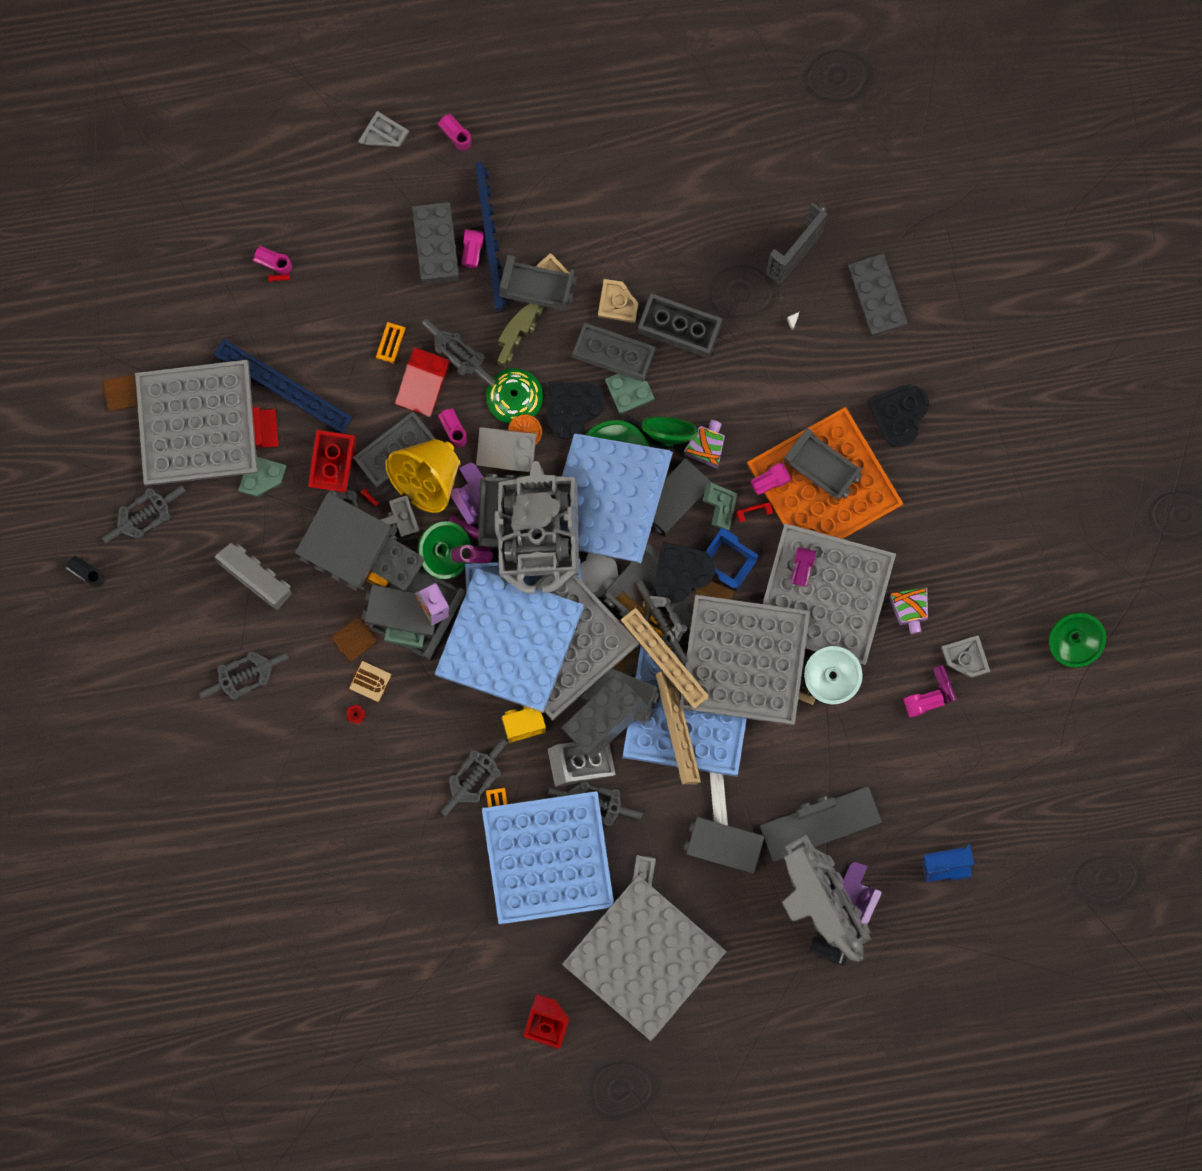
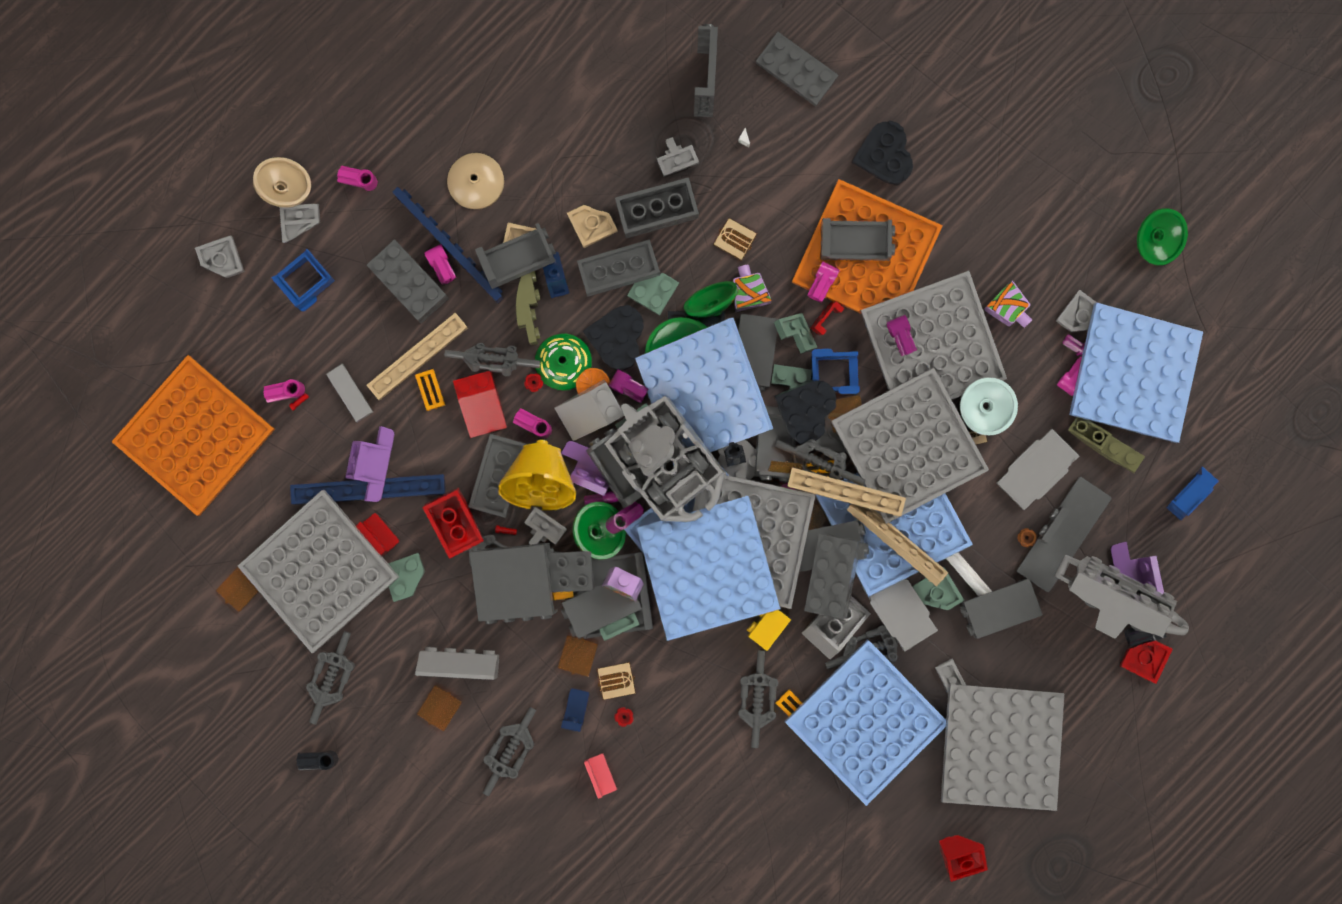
camera: 30 degrees left, 5 degrees up
(175, 245) = (193, 435): none -> orange plate
(212, 601) = (439, 708): none -> clear orange piece
(300, 119) = (220, 257): none -> light grey plate
(300, 366) = (370, 463): none -> medium lavender plate
(302, 746) = (600, 775): none -> coral panel
(321, 680) = (575, 710): none -> dark blue bracket
(324, 299) = (349, 393): none -> light grey tile
(348, 200) = (309, 297): none -> blue piece
(399, 89) = (284, 175): none -> tan dish
(399, 308) = (417, 356): none -> tan plate
(473, 395) = (533, 377): none -> red plate
(550, 449) = (626, 385): none -> magenta piece
(552, 213) = (476, 193): none -> tan dish
(556, 324) = (555, 278): none -> dark blue bracket
(597, 566) = (734, 454): none -> black piece
(641, 792) = (903, 614): none -> light grey piece
(682, 797) = (942, 596): none -> sand green plate
(689, 536) = (790, 376): none -> sand green plate
(725, 298) = (676, 158): none -> light grey hinge
(726, 396) = (735, 239): none -> piece
(788, 800) = (1026, 532): none -> dark orange plate
(814, 973) = (1147, 660): none -> red plate
(837, 755) = (1038, 469): none -> light grey piece
(908, 774) = (1106, 444): none -> olive slope
(975, 735) = (1136, 373): none -> light blue plate

